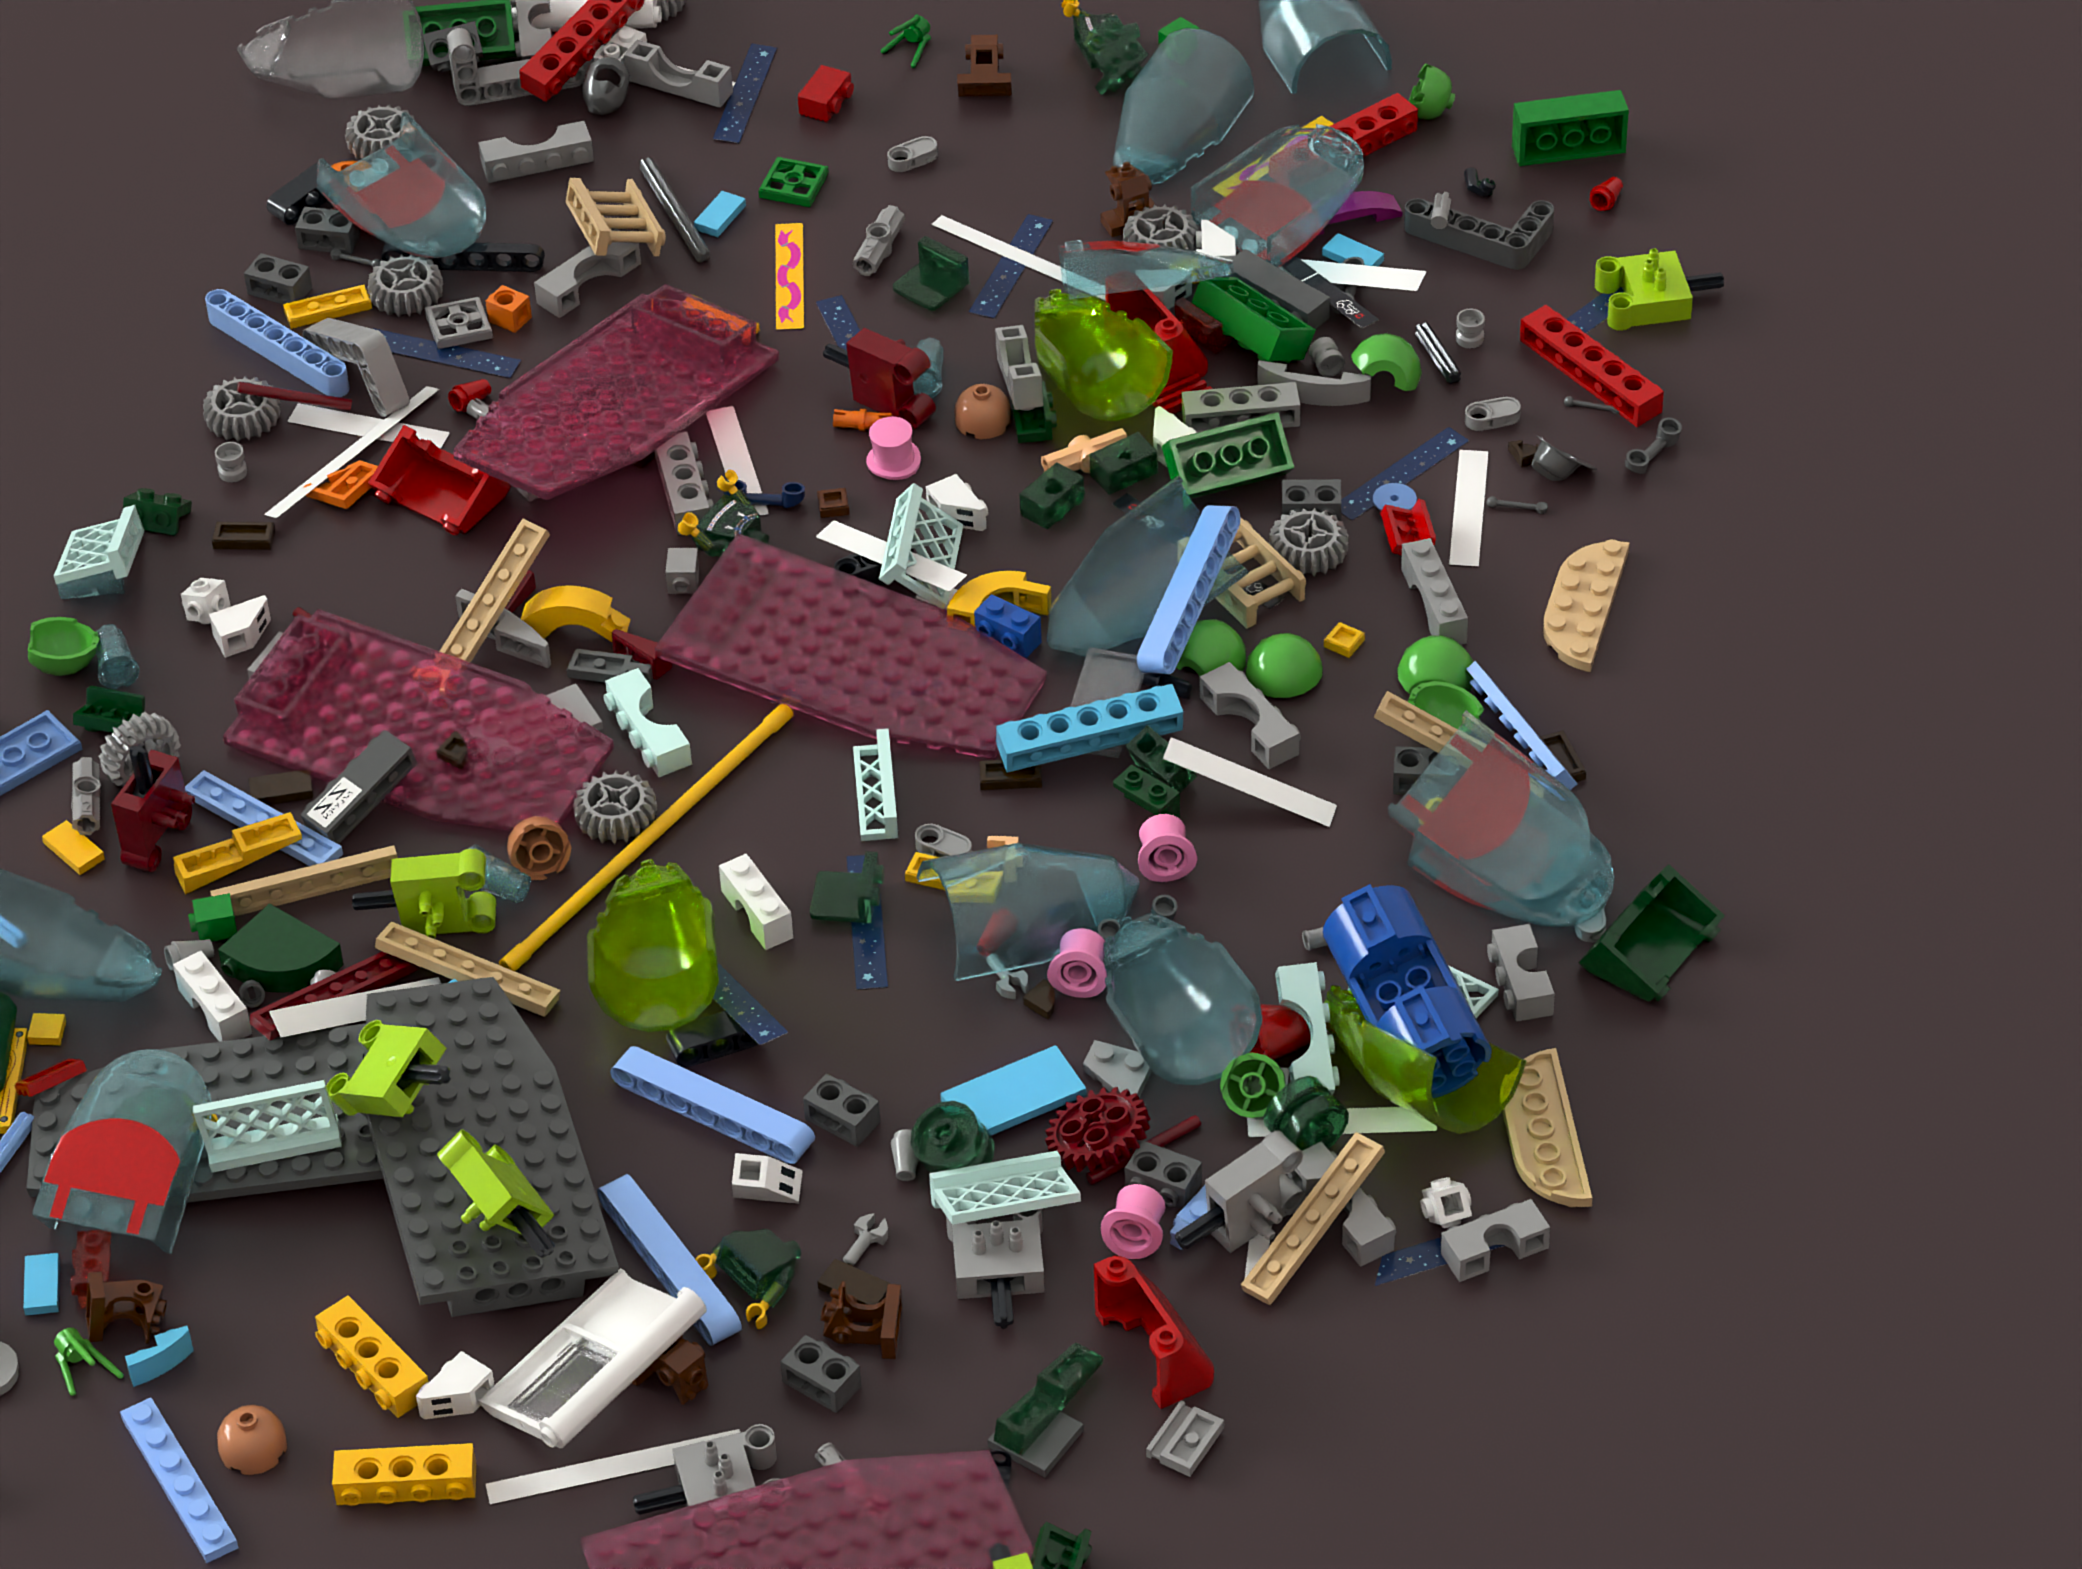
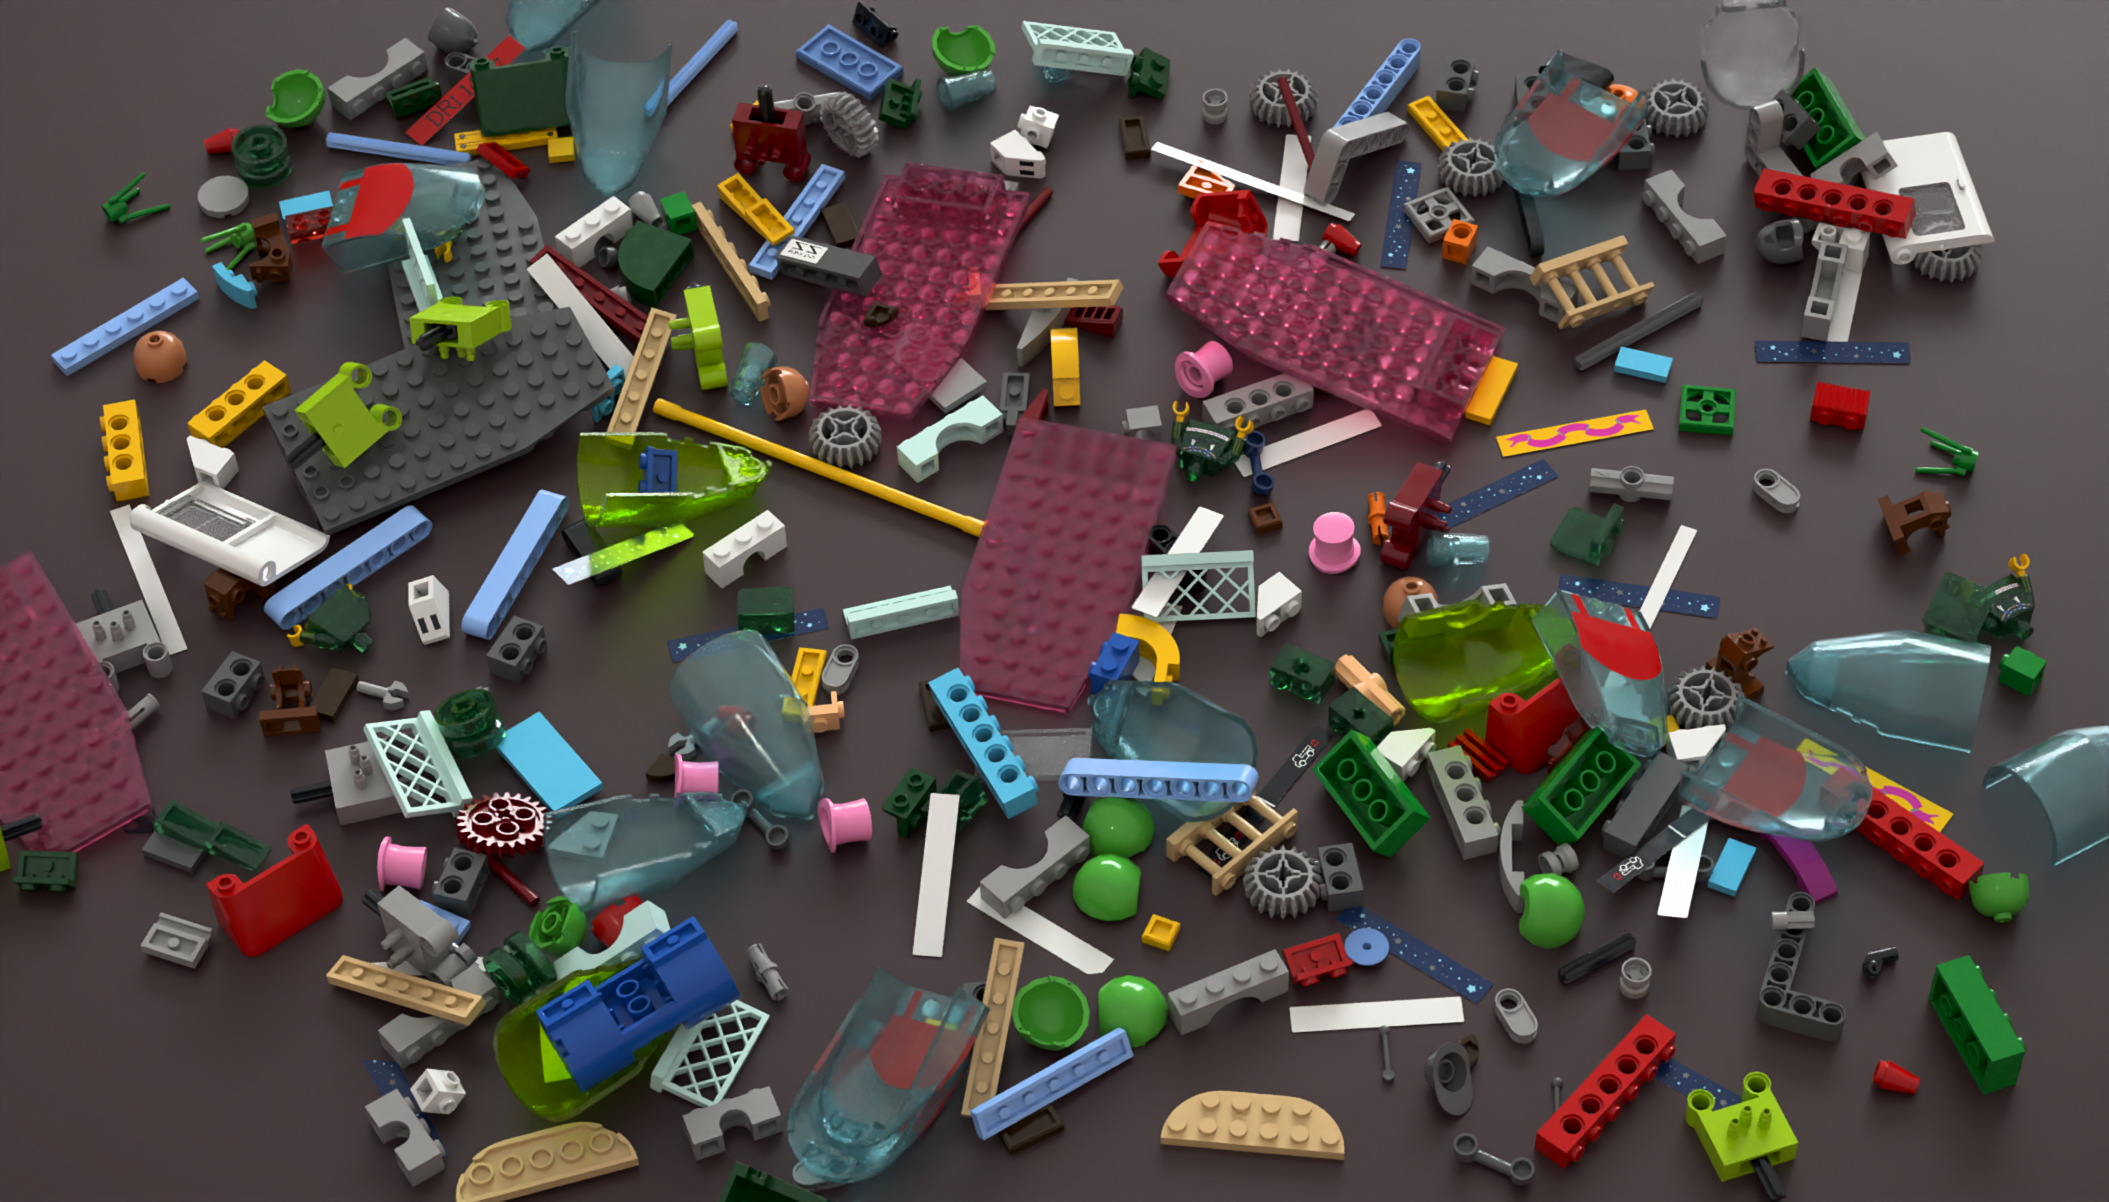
camera: 80 degrees right, 5 degrees up
(626, 512) = (1201, 369): none -> bright pink piece
(637, 956) = (658, 470): none -> blue bracket
(1327, 724) = (1049, 937): none -> white sticker

